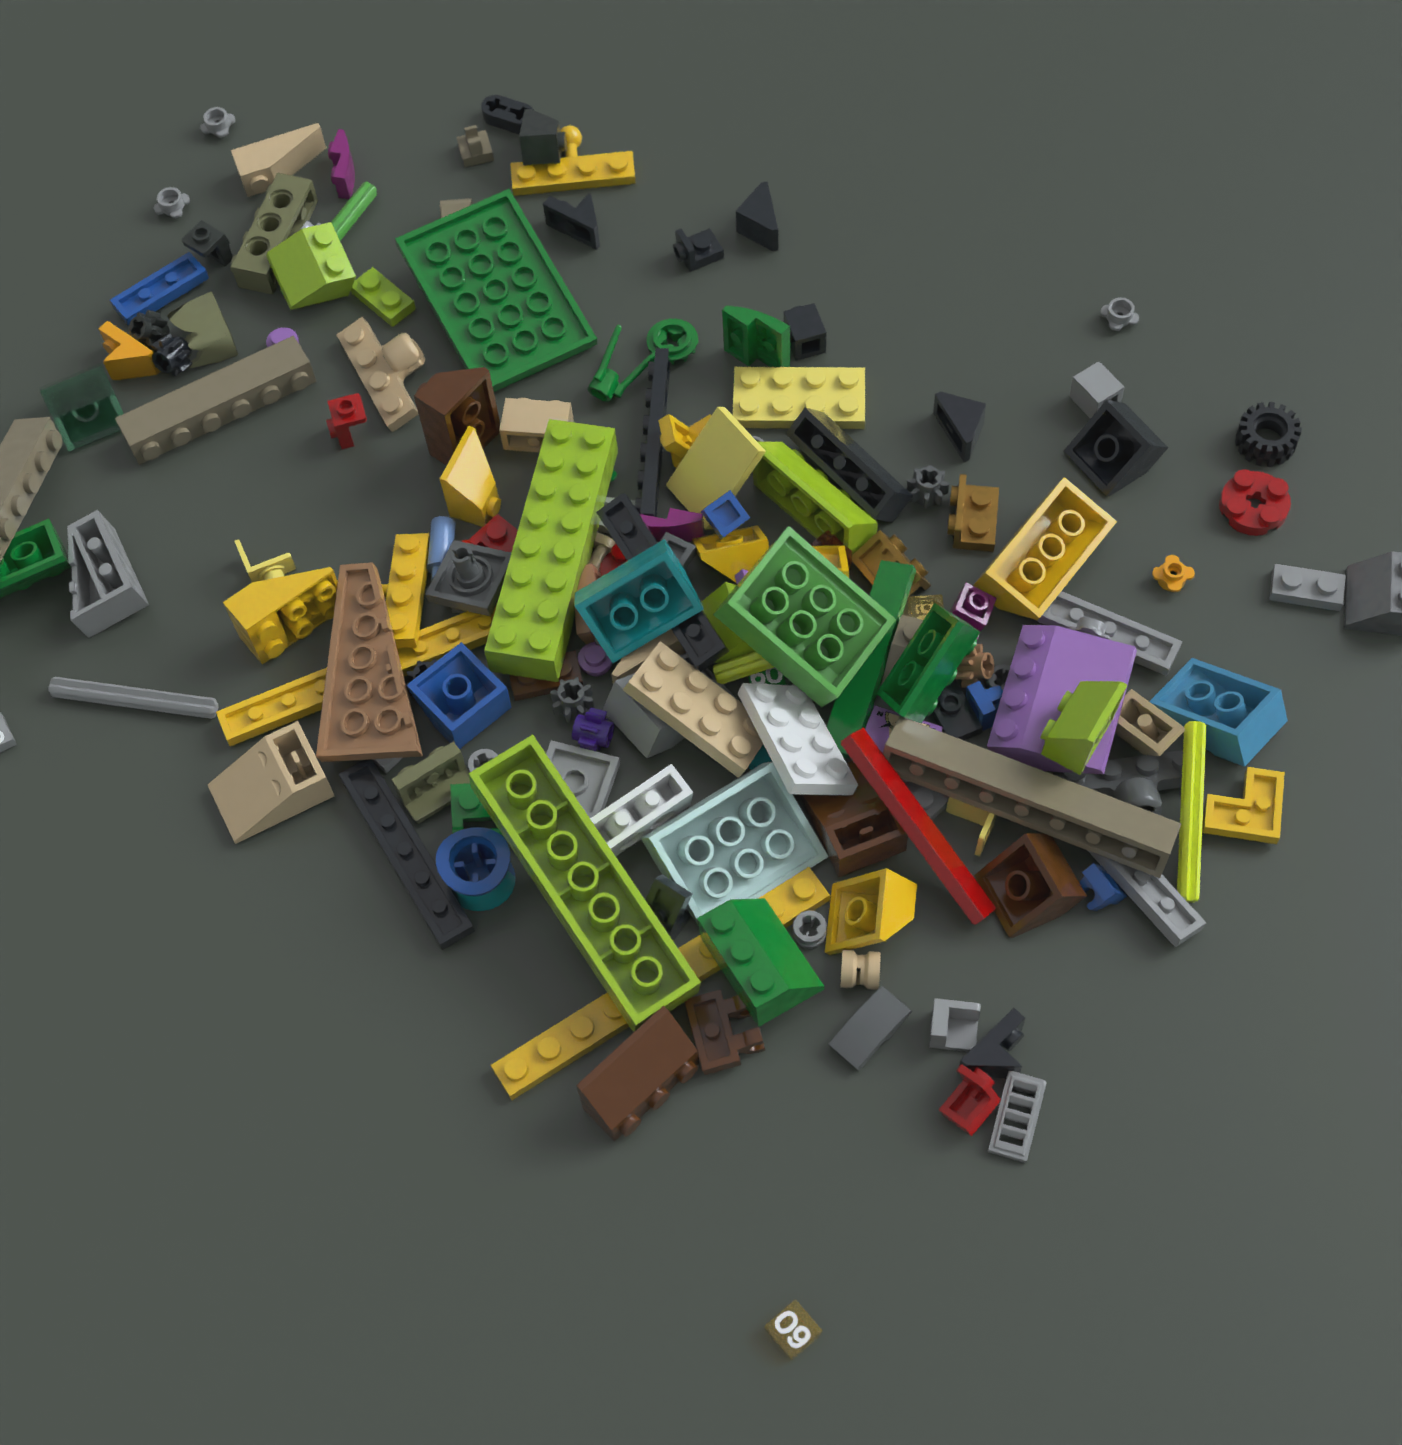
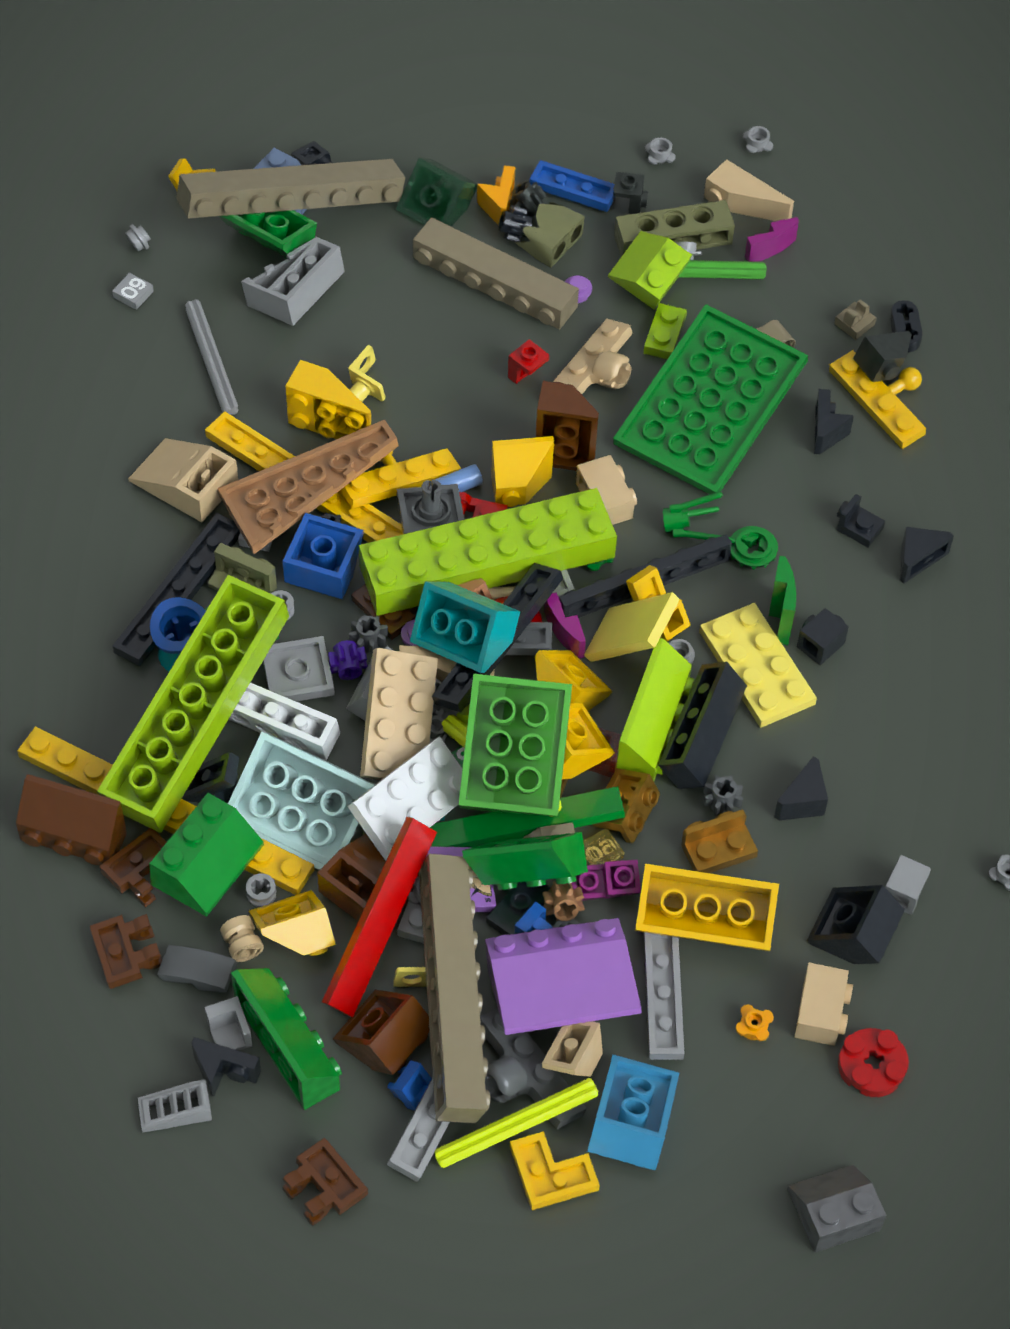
camera: 55 degrees right, 5 degrees down
(725, 514) = (591, 654): blue tile -> none
(810, 1096) = (116, 951): none -> reddish brown plate
(971, 1100) = (167, 1064): red bracket -> none
(999, 975) = (285, 1035): none -> green slope
(1082, 723) = (527, 989): lime slope -> none
(1091, 626) = (643, 973): light grey plate -> none
(1167, 1002) = (331, 1176): none -> reddish brown plate
(1183, 511) = (822, 1004): none -> tan brick
(1273, 419) = (947, 1060): black tyre -> none
(1307, 587) = (809, 1139): light grey plate -> none

